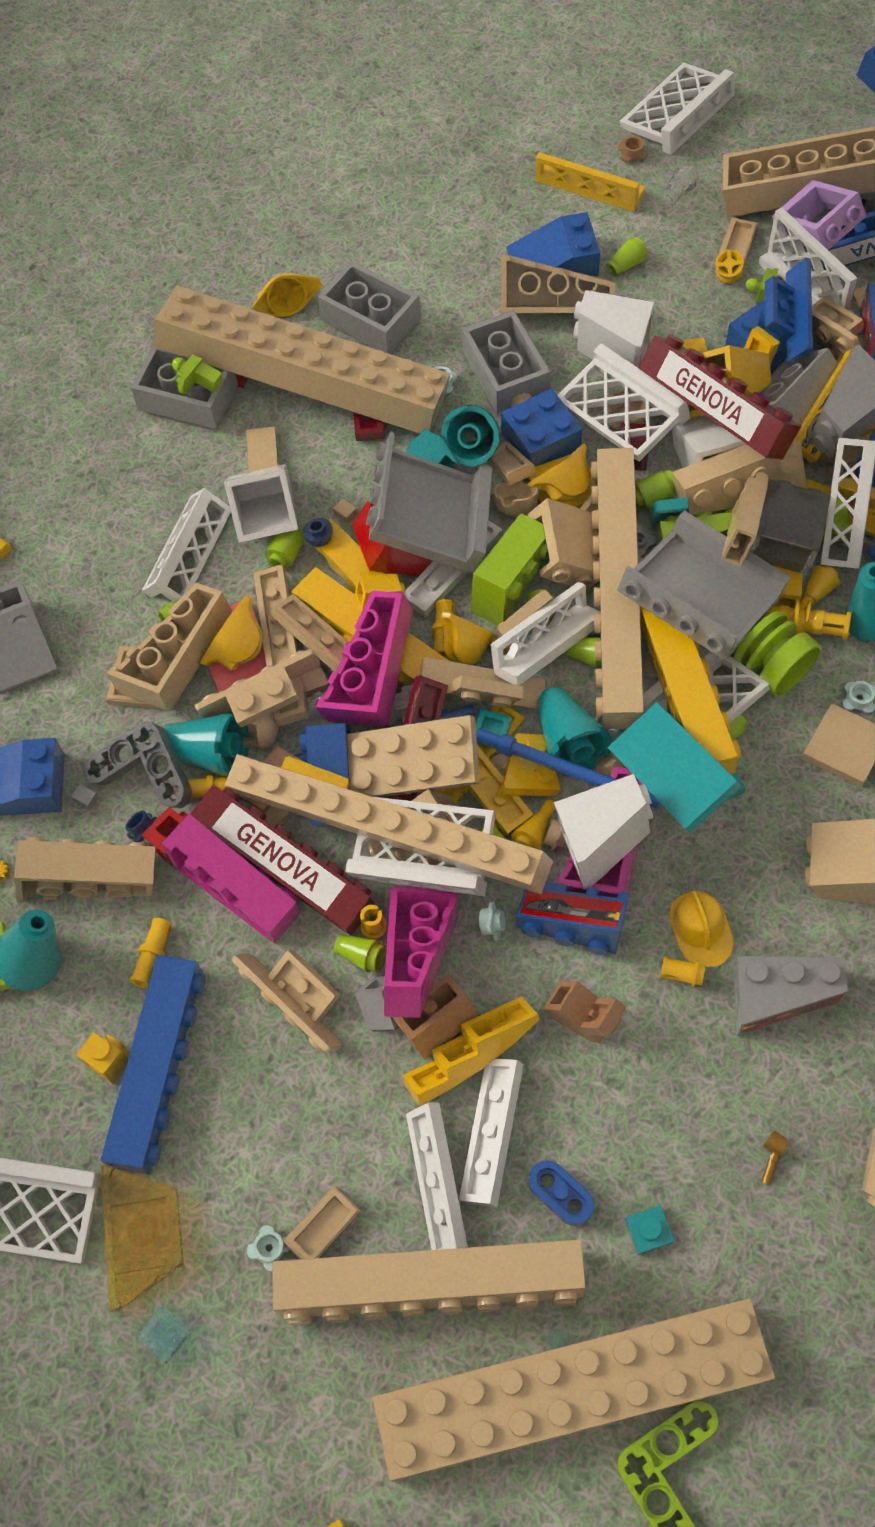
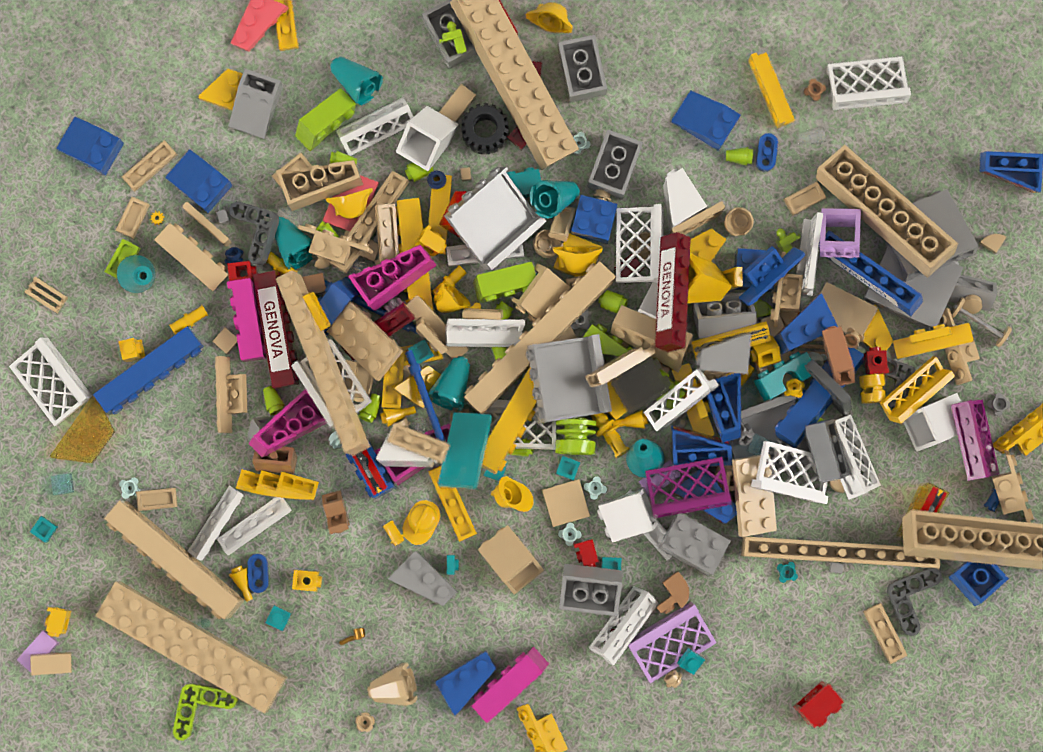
camera: 35 degrees right, 20 degrees up
(71, 818) = (207, 224): none -> tan tile
(115, 514) = (356, 79): none -> teal cone
(115, 586) = (324, 119): none -> lime wedge
(192, 1431) = (43, 529): none -> teal tile
(226, 936) = (226, 340): none -> tan tile
(325, 462) = (485, 113): none -> black tyre
(373, 923) = (292, 396): yellow pin -> none
(544, 288) = (678, 144): tan wedge -> none
(544, 1224) = (240, 578): none -> yellow cone
(612, 791) = (418, 443): none -> tan tile
(634, 1151) = (298, 580): none -> yellow brick
(654, 235) = (767, 153): none -> blue plate
(661, 318) = (699, 219): none -> tan tile
(666, 508) = (602, 320): teal tile -> none
(697, 309) = (738, 221): none -> tan hair
(714, 868) = (454, 507): none -> yellow tile
(728, 260) = (777, 211): yellow wheel -> none
(775, 790) = (513, 495): none -> yellow piece
(796, 938) = (452, 564): none -> teal plate
(803, 704) = (568, 468): none -> teal tile

